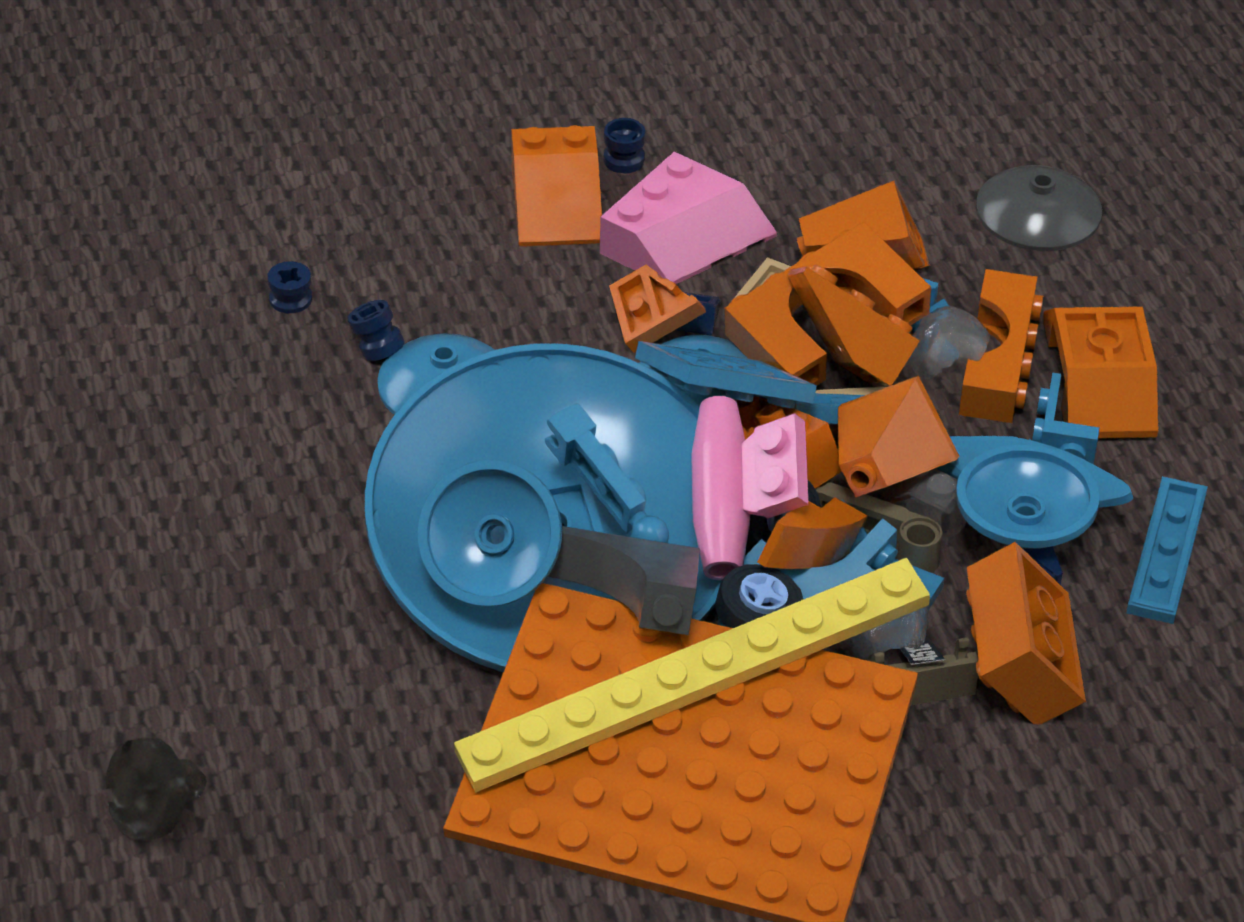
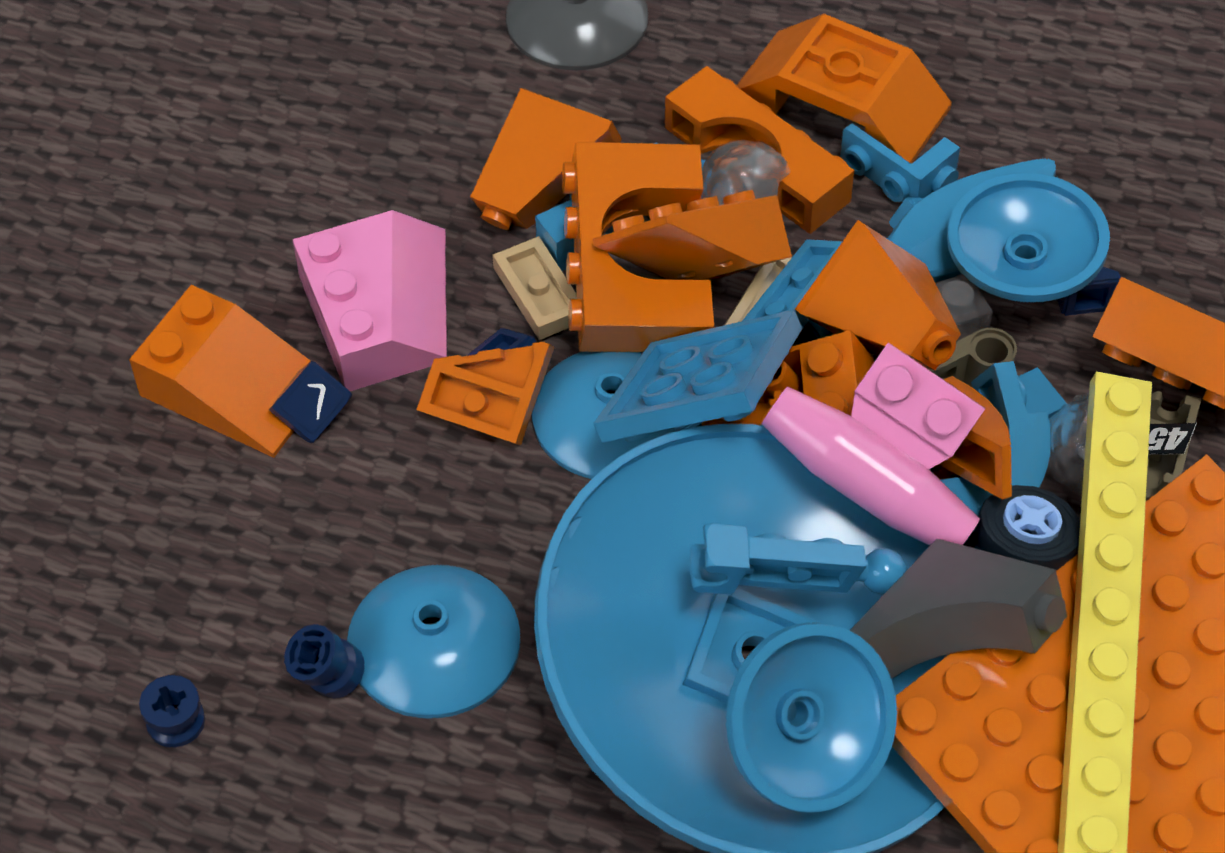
camera: 55 degrees left, 10 degrees up
(566, 233) = (310, 401): none -> dark blue slope
(624, 145) = (217, 271): dark blue wheel -> none
(1167, 550) = (1121, 198): dark azure tile -> none

